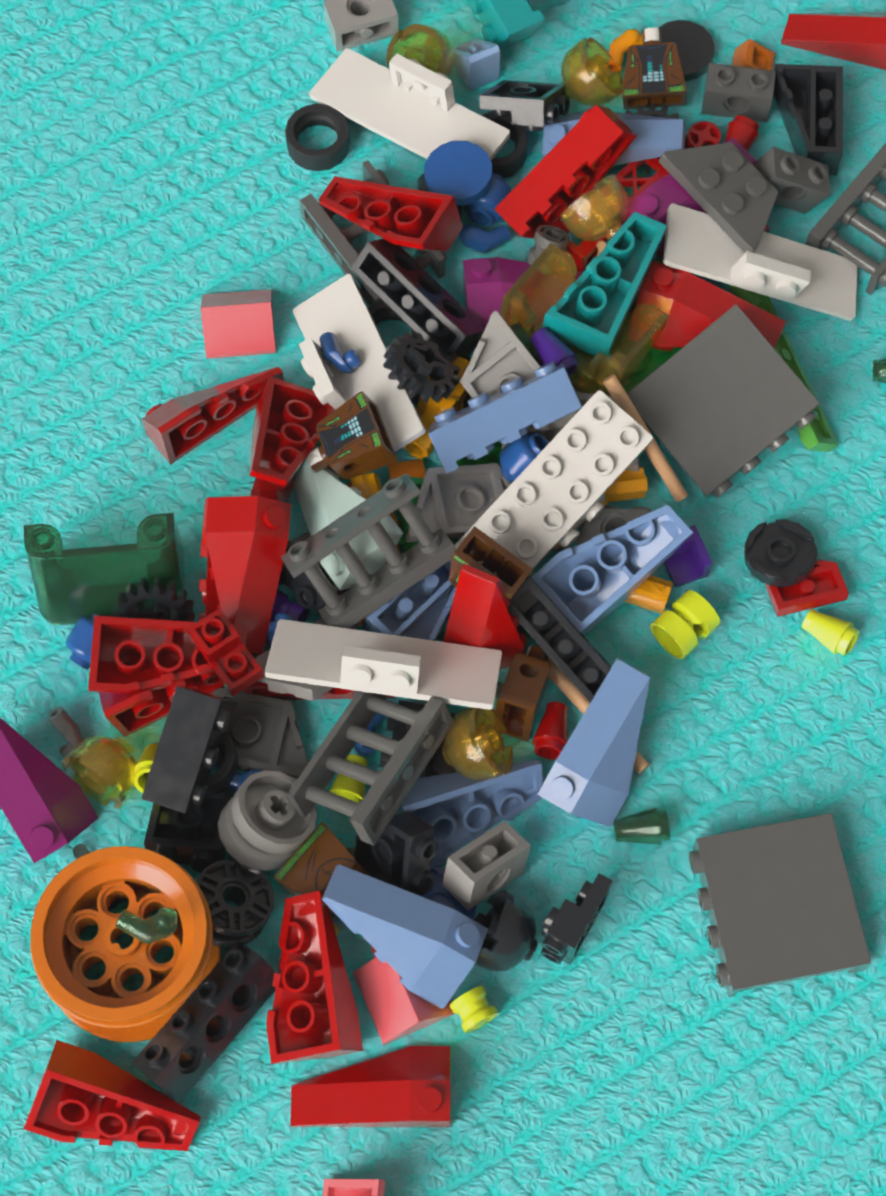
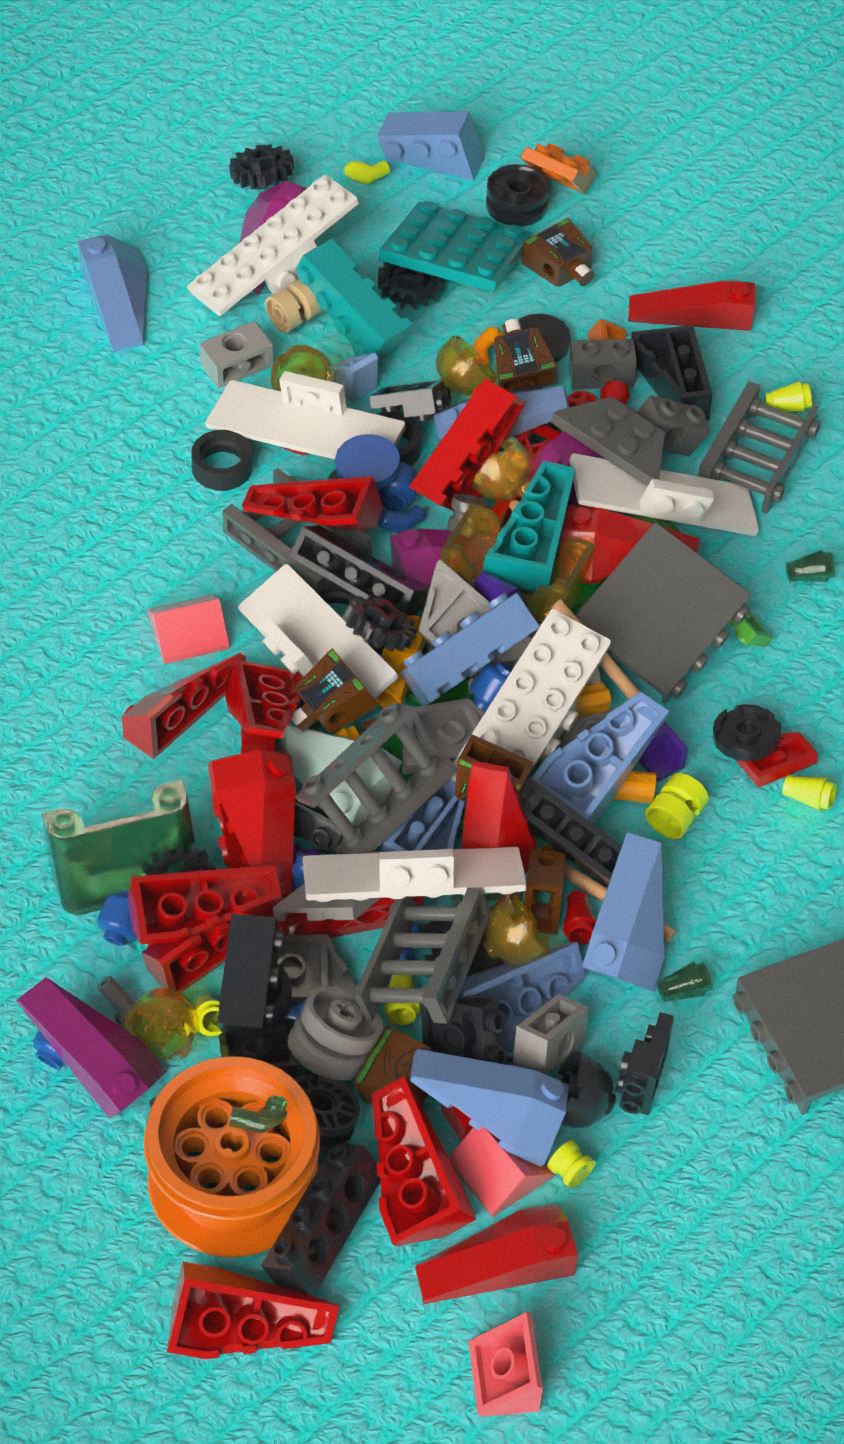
camera: 15 degrees left, 15 degrees down
(225, 652) = (259, 887): red slope -> none
(333, 354) = (293, 631): blue arm -> none

